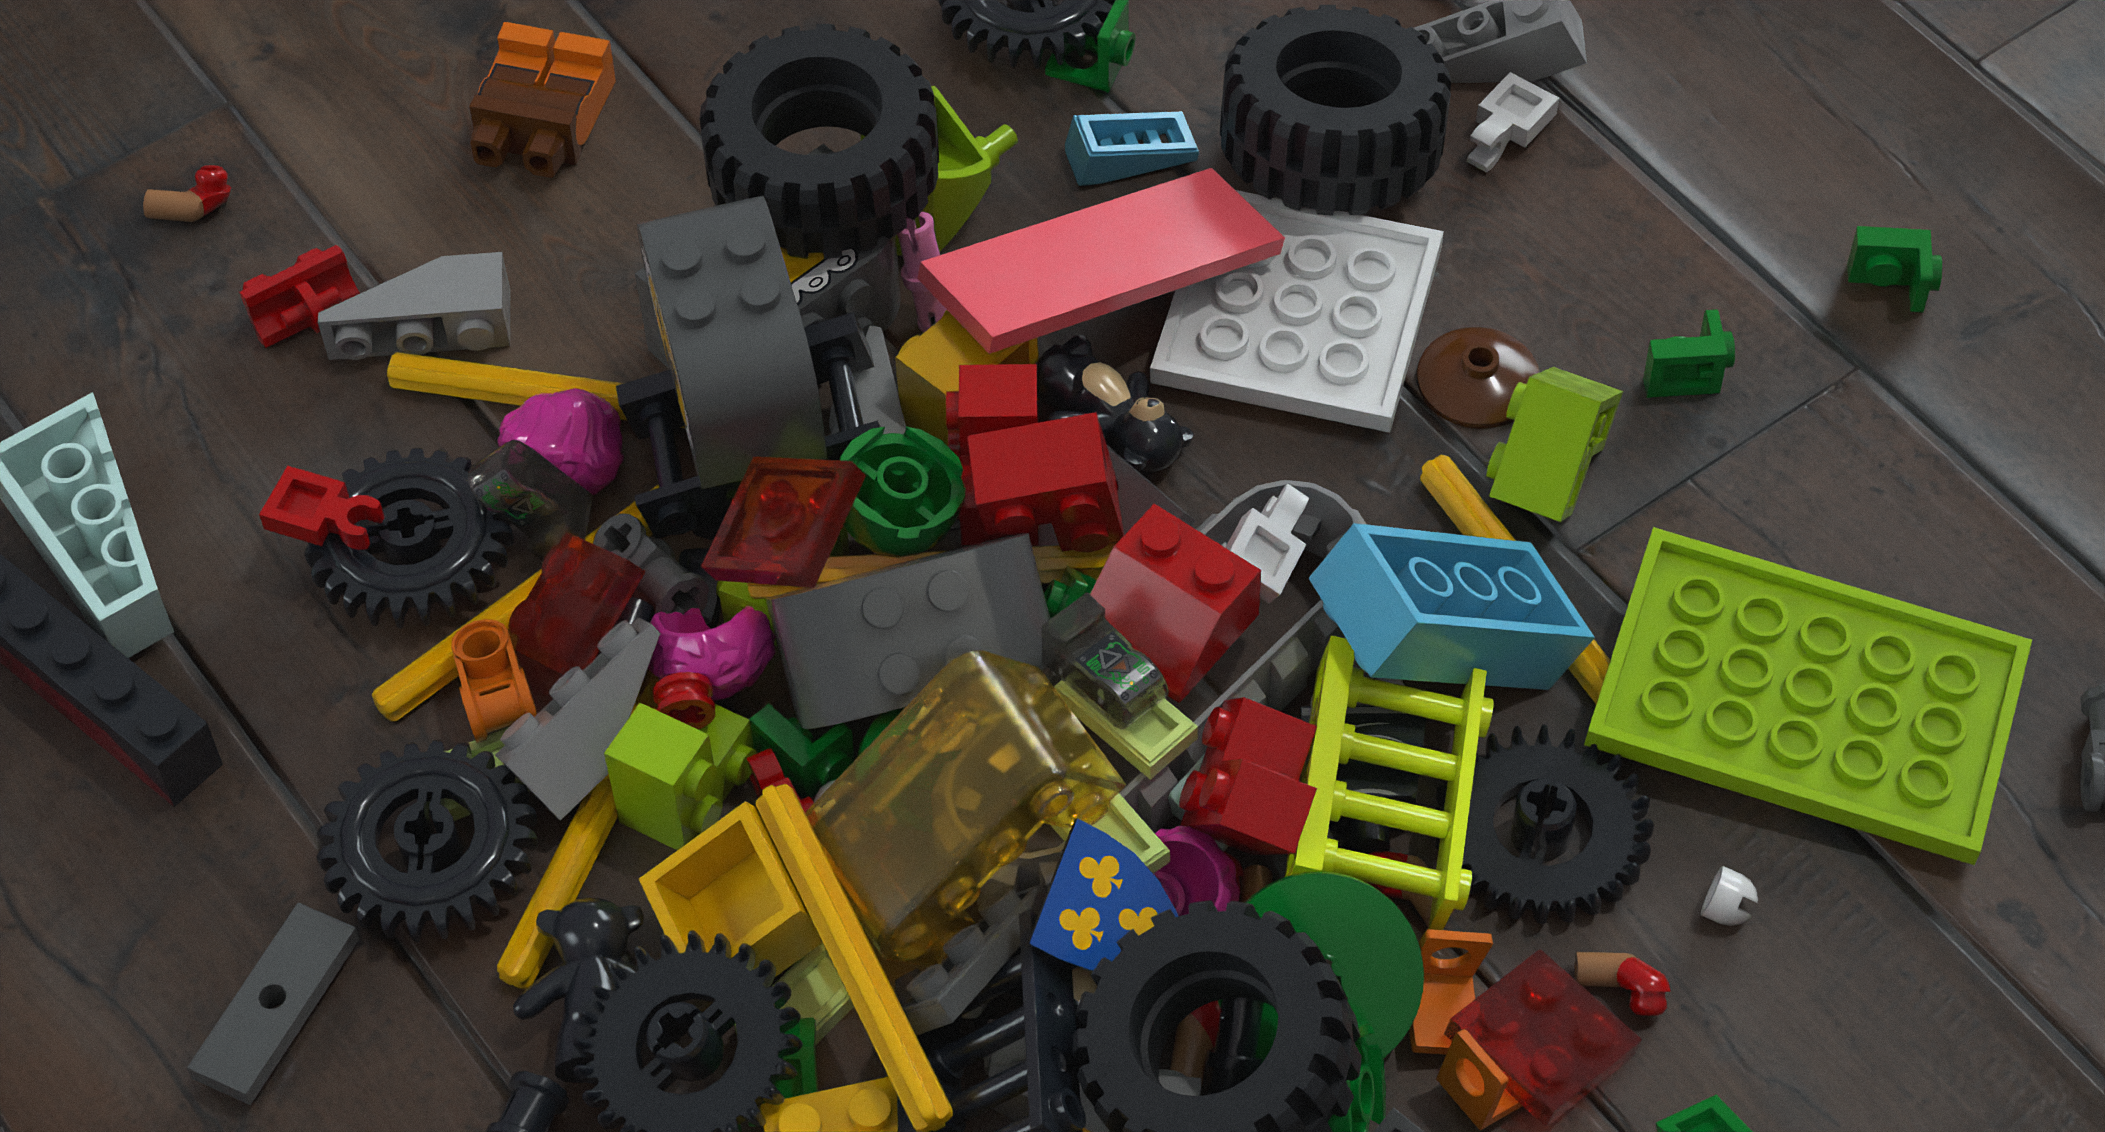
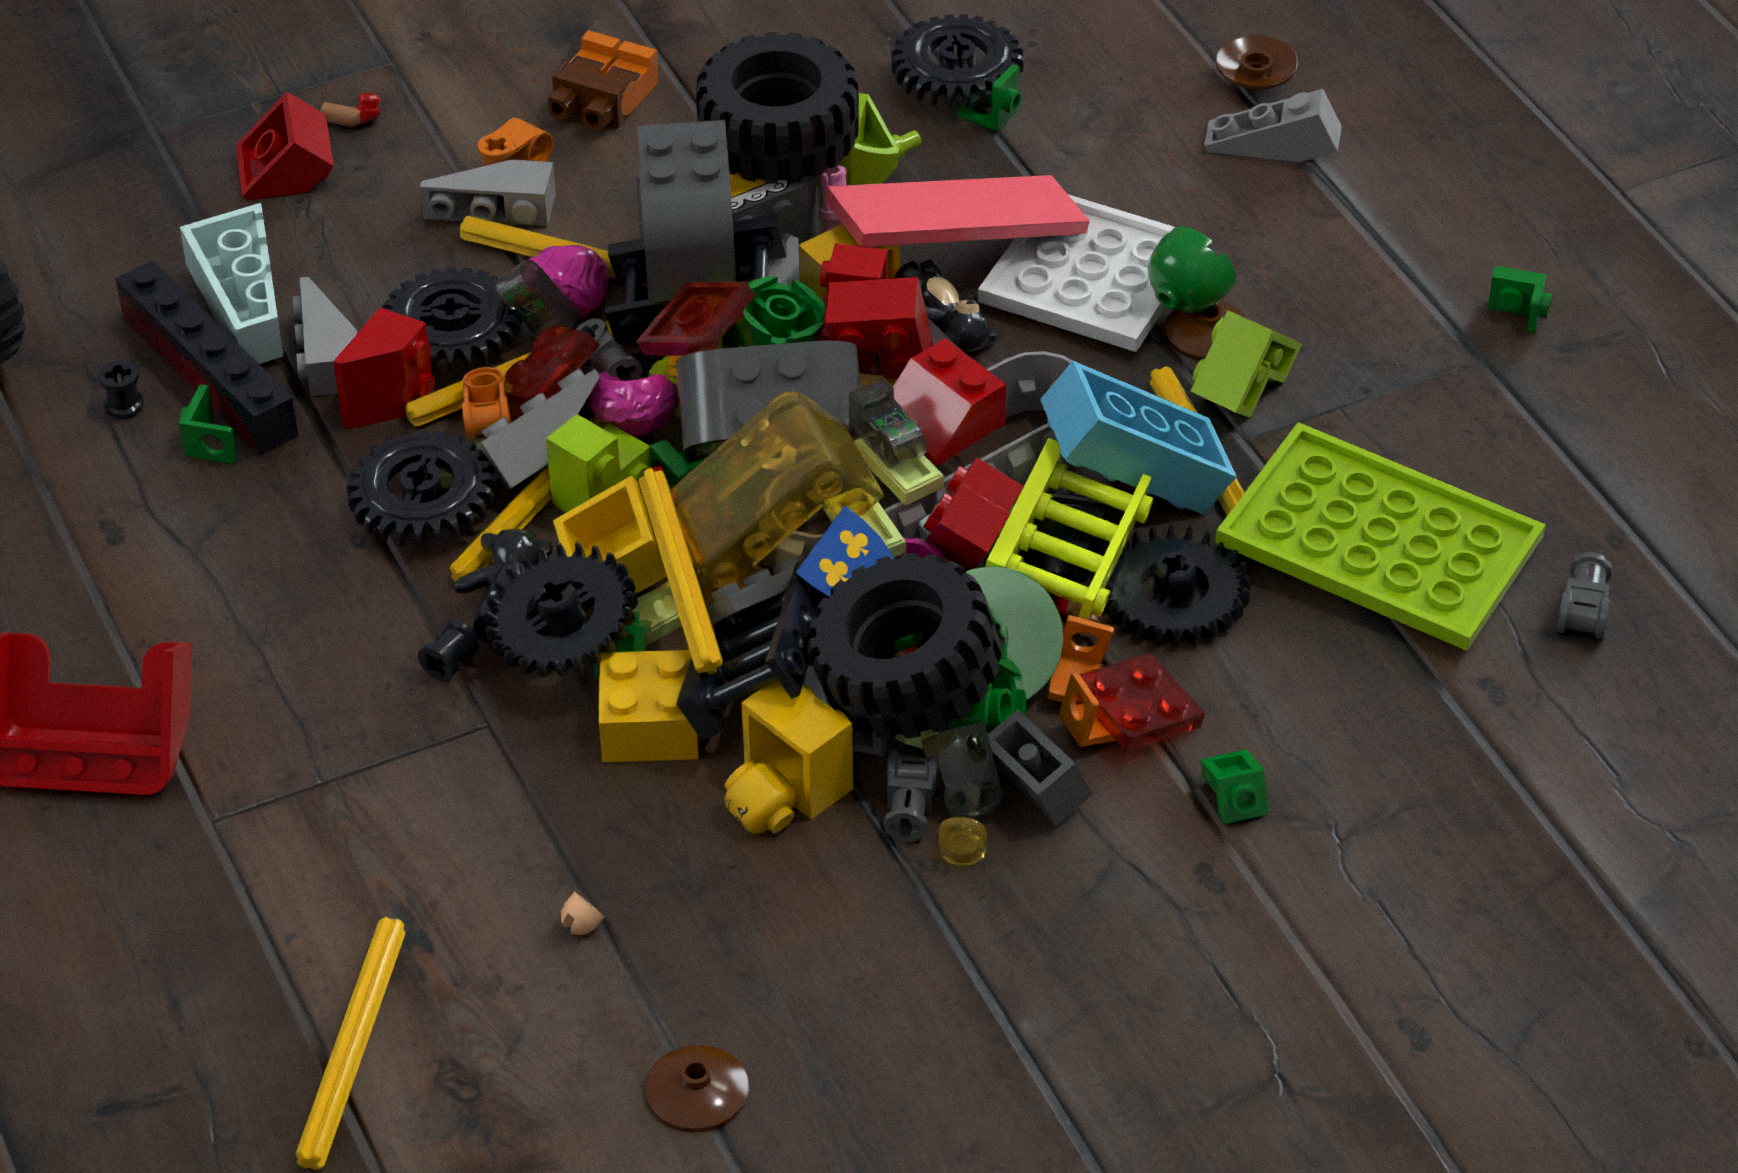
camera: 10 degrees right, 10 degrees down
(65, 780) = (196, 423): none -> green bracket
(105, 283) = (284, 151): none -> red slope
(239, 604) = (321, 336): none -> light grey slope
(291, 973) = (299, 565): dark grey tile -> none
(296, 295) = (402, 175): red hips -> none
(314, 505) = (392, 285): red plate -> none
(331, 648) = (383, 369): none -> red slope
(438, 225) = (515, 142): none -> orange piece
(686, 698) = (610, 418): red bush -> none
(1107, 146) = (1000, 158): medium azure slope -> none
(1268, 542) = (1022, 378): white plate -> none
(1334, 109) = (1145, 150): black tyre -> none
(1445, 308) = (1189, 272): none -> green cylinder
(1509, 112) = (1273, 174): white plate -> none
(1628, 972) = (1204, 675): arm -> none
(1690, 363) = (1355, 335): green bracket -> none
(1725, 896) = (1287, 642): white hinge -> none

